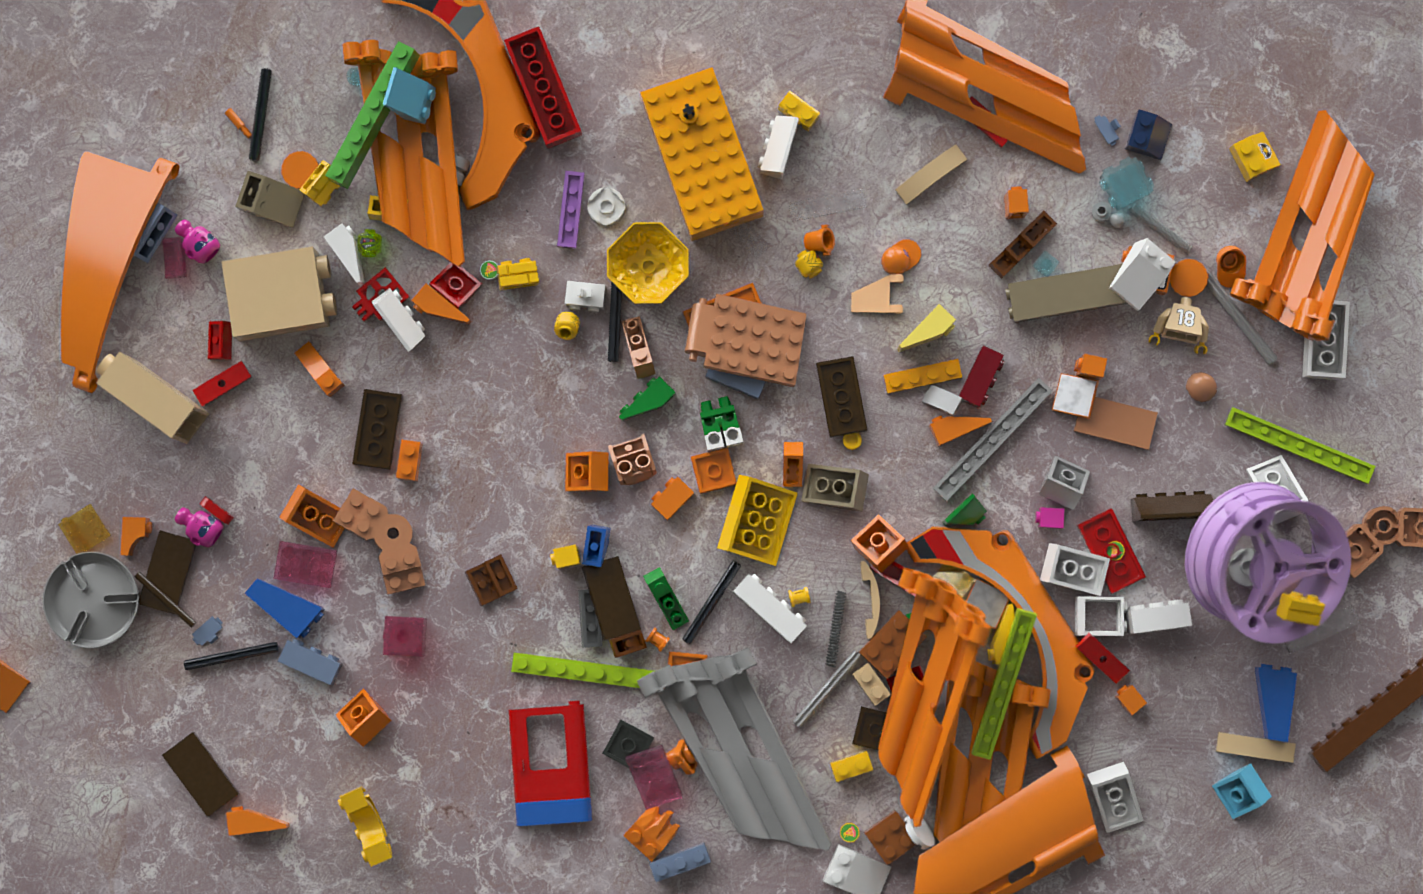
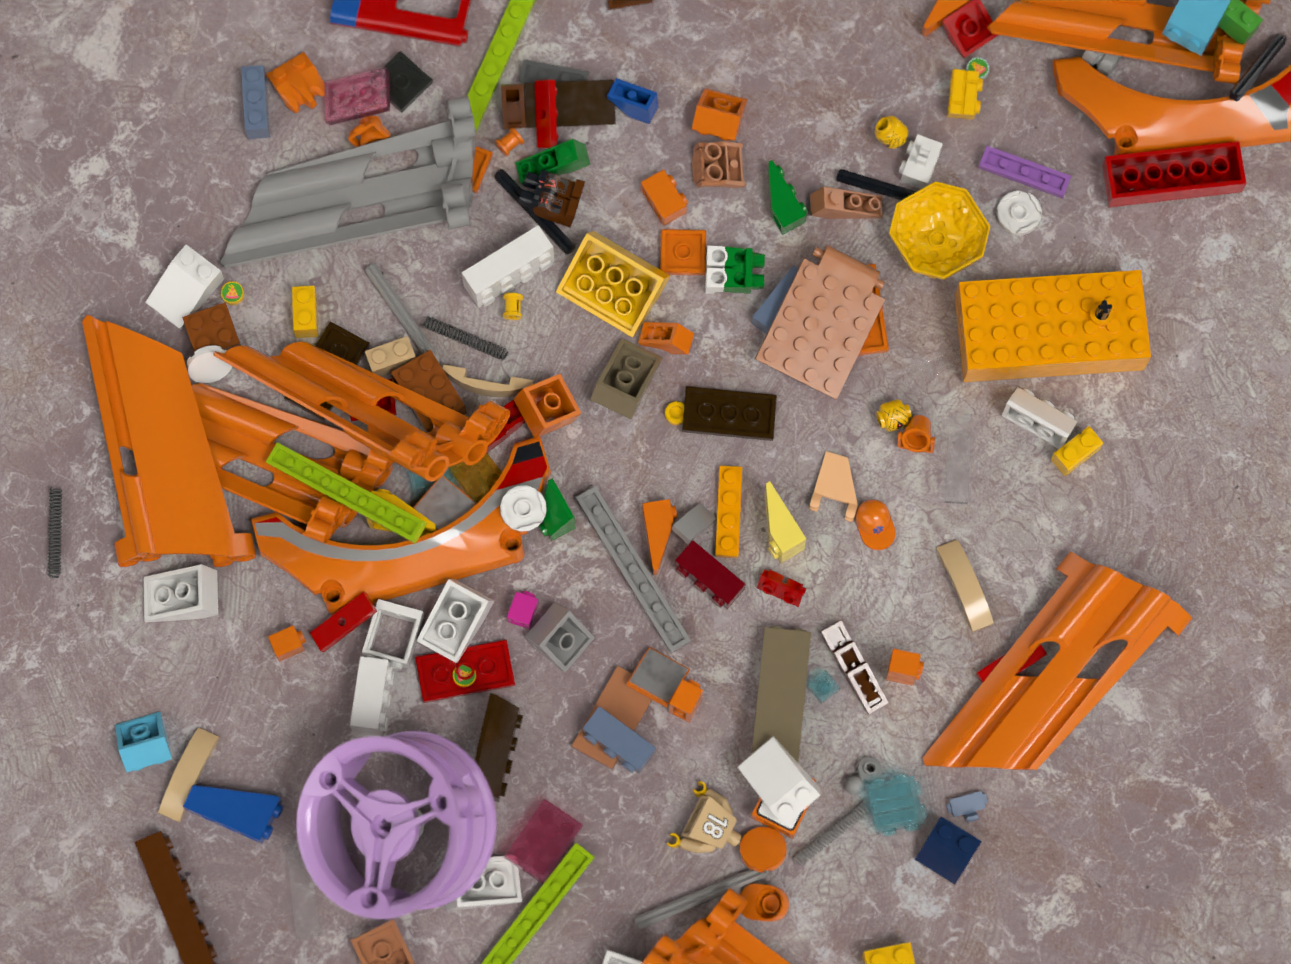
camera: 100 degrees right, 10 degrees down
(434, 39) = (1257, 67): none -> black axle
(565, 557) = (629, 63): yellow brick -> none
(628, 614) = (546, 113): none -> red tile
(698, 589) = (553, 197): none -> hips
(970, 542) = (516, 508): none -> white tile
(975, 310) = (771, 584): none -> red hinge
(1137, 412) = (618, 741): none -> sand blue brick
(1201, 386) = (628, 829): nougat hair -> none
(1231, 450) = (543, 841): none -> clear pink plate
(1300, 609) = (329, 839): yellow brick -> none

